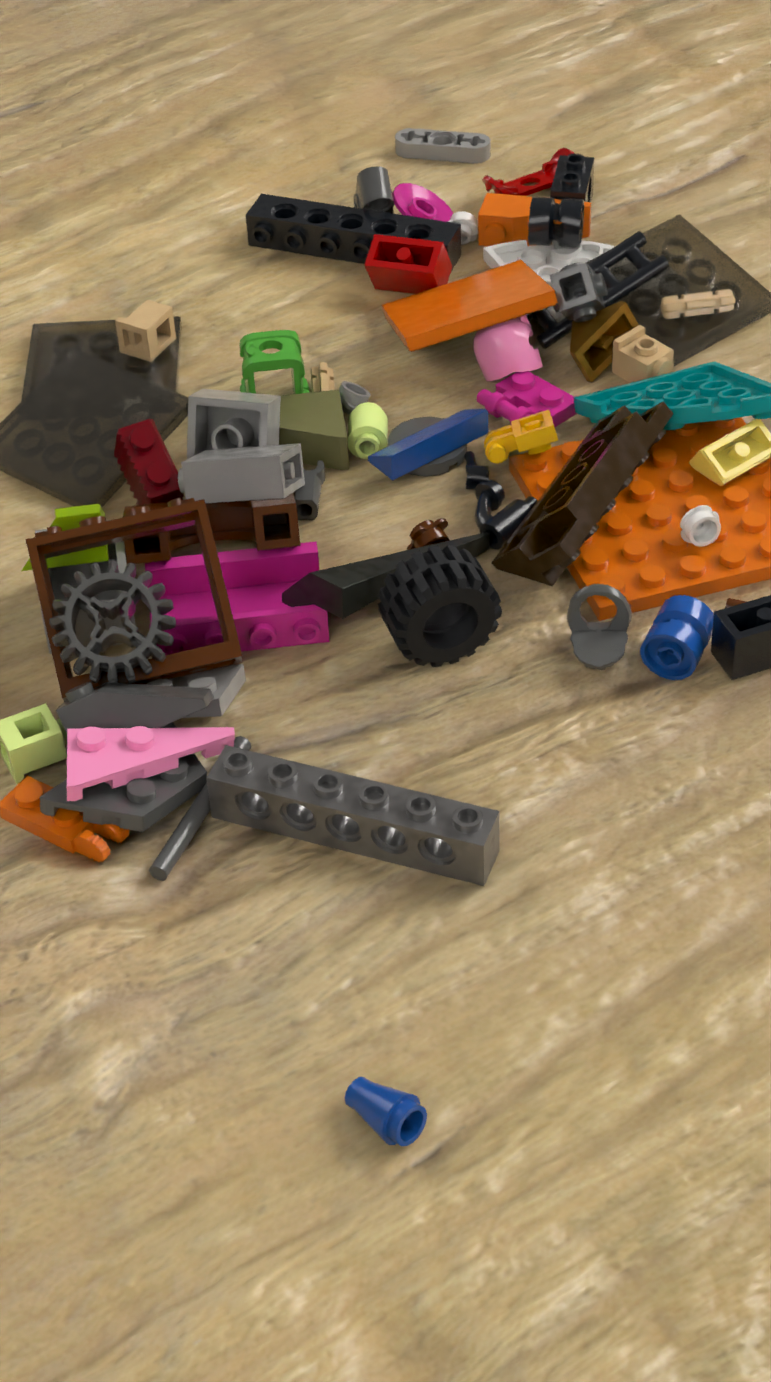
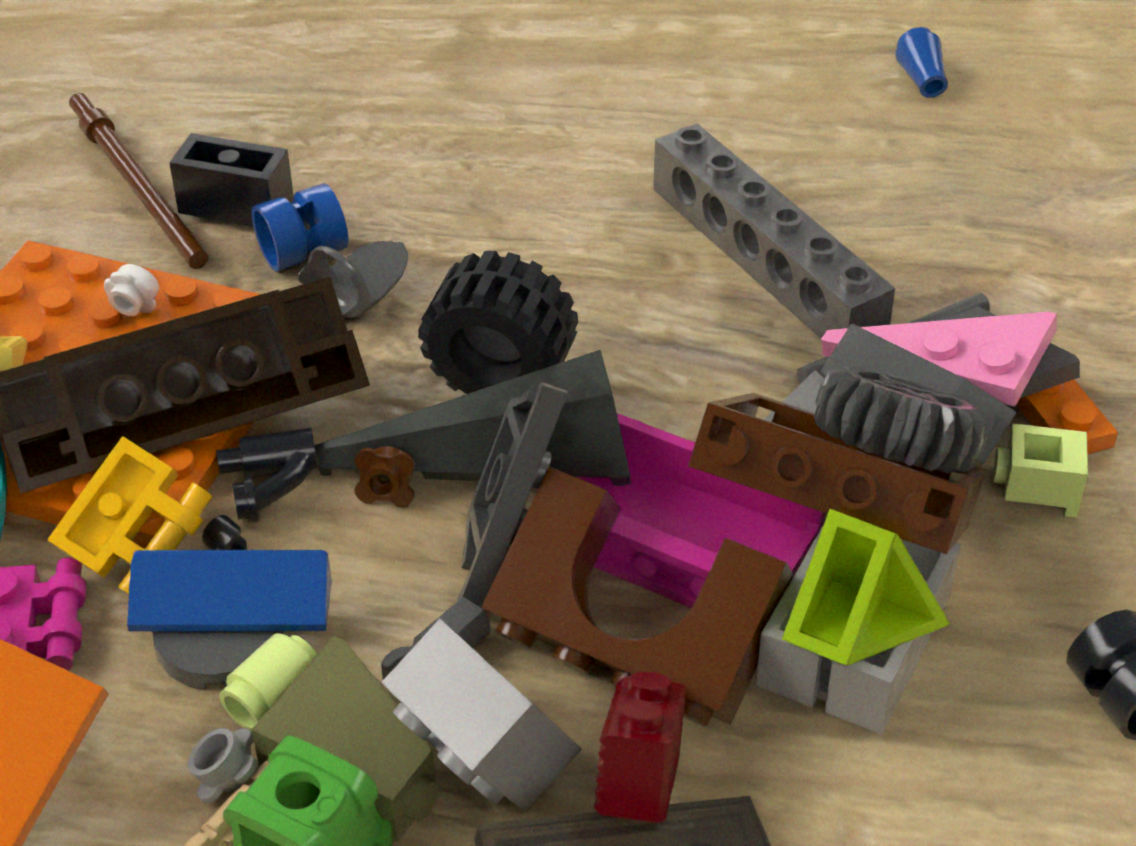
camera: 145 degrees left, 0 degrees up
(243, 473) = (541, 616): light grey brick -> none
(327, 519) = (512, 468): none -> dark grey wing

